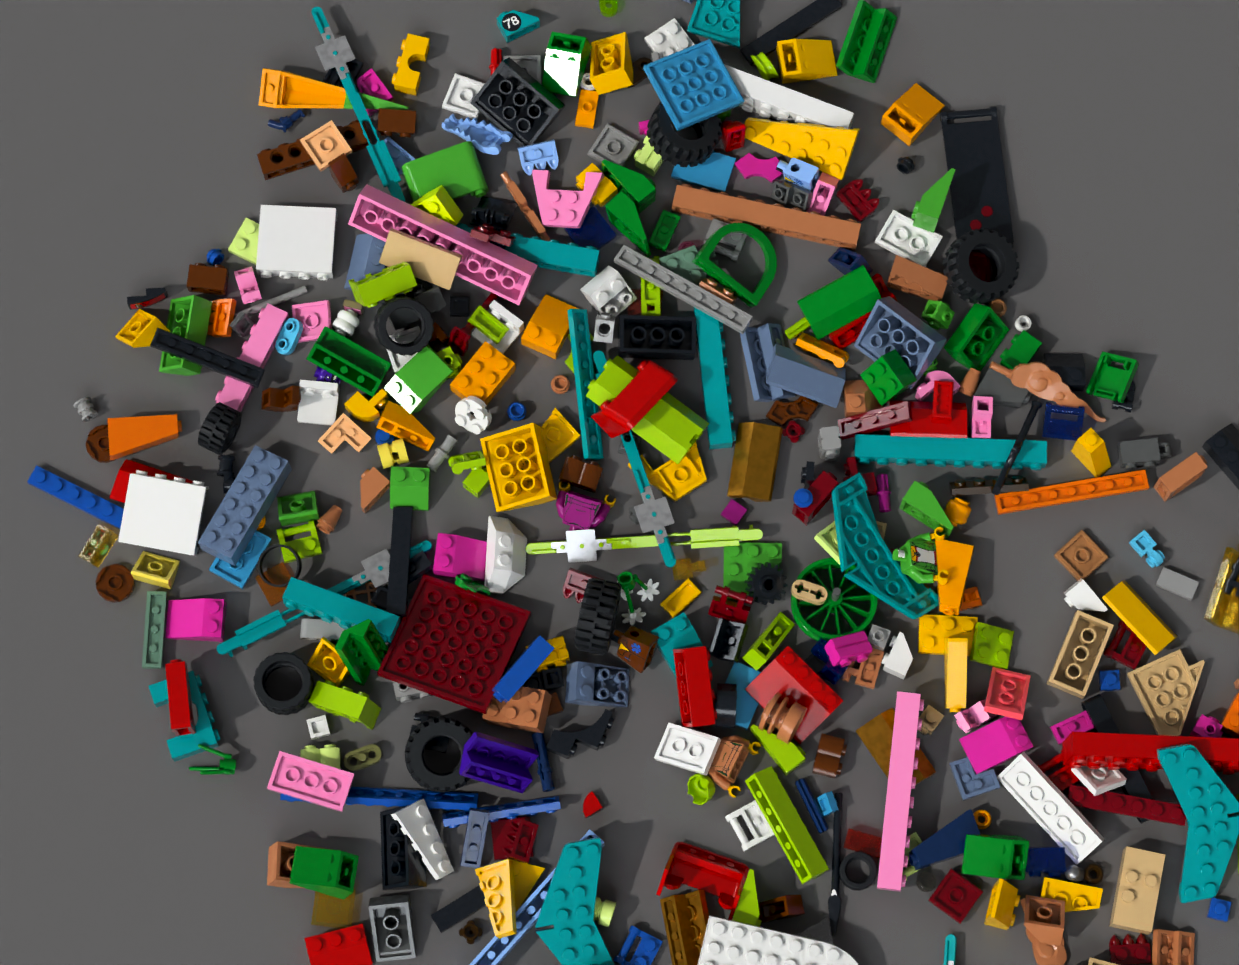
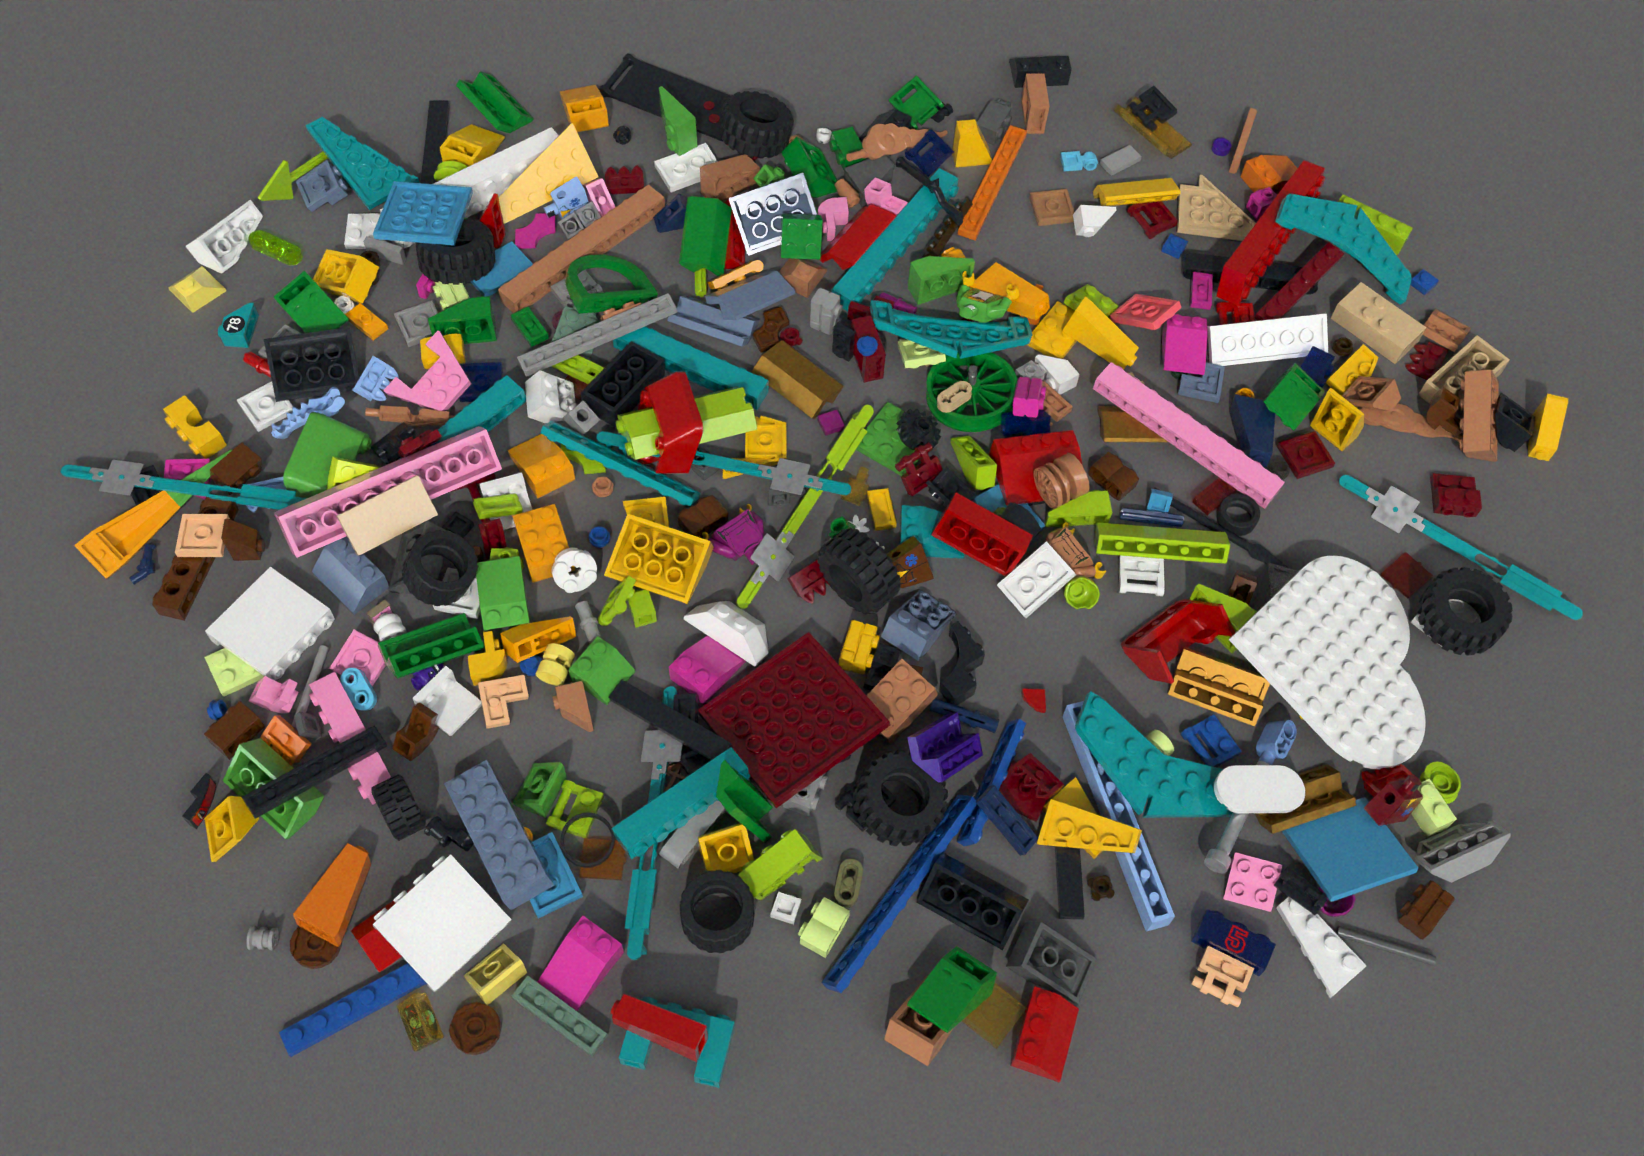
camera: 60 degrees left, 15 degrees down
(226, 766) = (764, 1031): green plant -> none
(310, 781) = (844, 944): bright pink plate -> none
(328, 521) = (575, 765): nougat cone -> none
(383, 284) = (383, 562): lime wedge -> none
(420, 828) = (971, 864): white wing -> none
(466, 582) = (735, 673): green plate -> none
(522, 669) = (868, 660): blue slope -> none
(625, 218) = (502, 339): green slope -> none
(875, 420) = (832, 261): plate -> none
(942, 400) = (850, 212): red plate -> none
(973, 717) = (1149, 348): bright pink brick -> none
(1074, 873) = (1339, 357): flat silver piece -> none
(1080, 654) = (1141, 248): tan brick -> none
(1099, 779) = (1266, 289): white plate -> none

